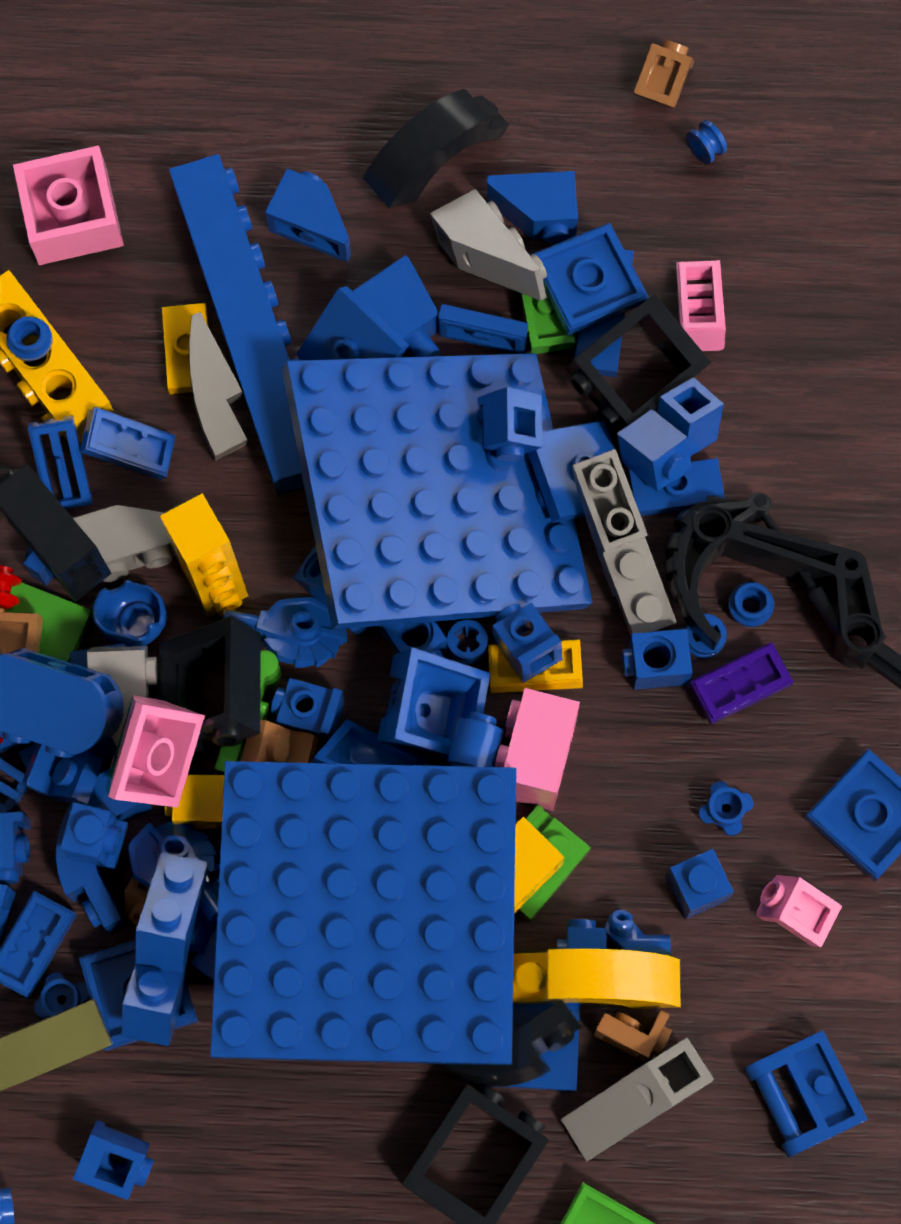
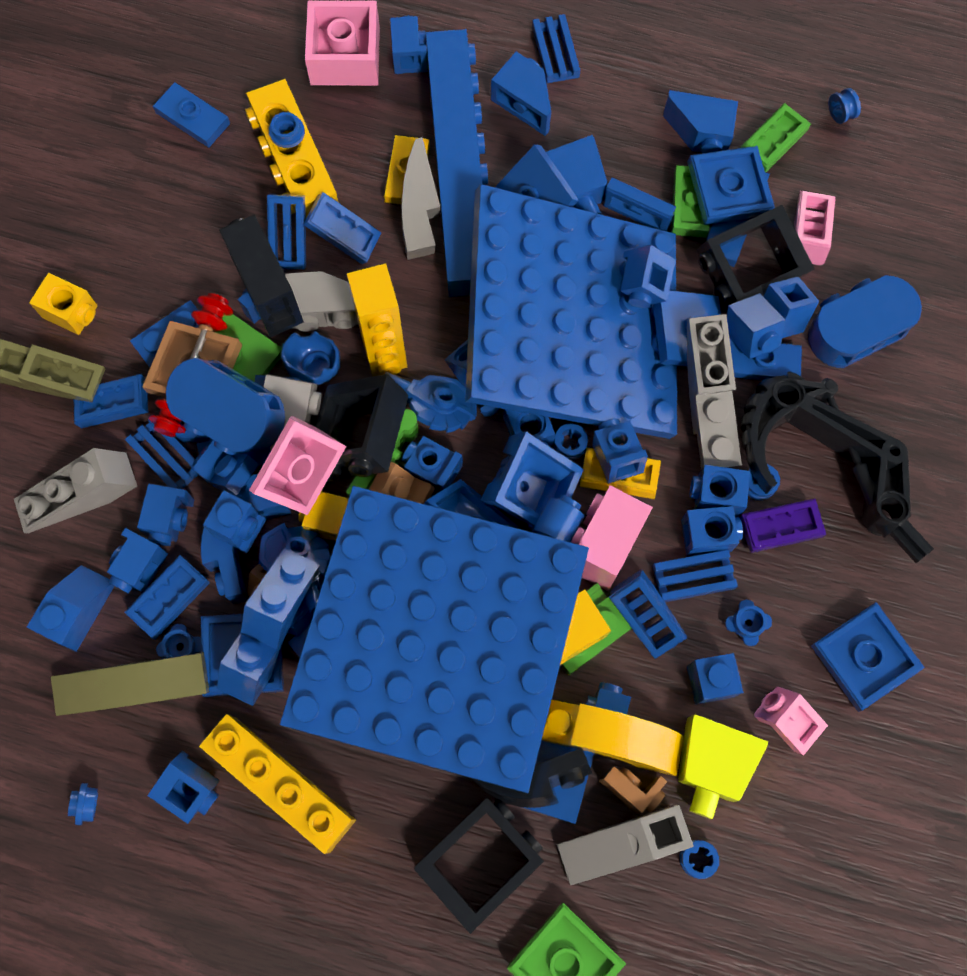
camera: 10 degrees right, 0 degrees up
(150, 187) = (408, 45): none -> blue brick
(220, 1128) = (278, 783): none -> yellow brick
(321, 118) = (551, 26): none -> blue tile
(428, 142) = (629, 55): black arch -> none
(482, 245) = (655, 142): light grey slope -> none
(594, 838) = (658, 606): none -> blue slope
(628, 936) = (646, 708): blue arm -> none
(632, 200) = (778, 135): none -> bright green plate
(643, 724) = (699, 542): none -> blue brick
(664, 73) = (822, 47): medium nougat bracket -> none
(685, 752) = (725, 569): none -> blue tile
(723, 980) = (717, 763): none -> neon yellow torso
(738, 1106) = (705, 871): none -> blue bush
(755, 592) = (808, 456): blue plate -> none
(784, 410) = (864, 320): none -> blue brick
(820, 1087) = (778, 872): blue plate -> none

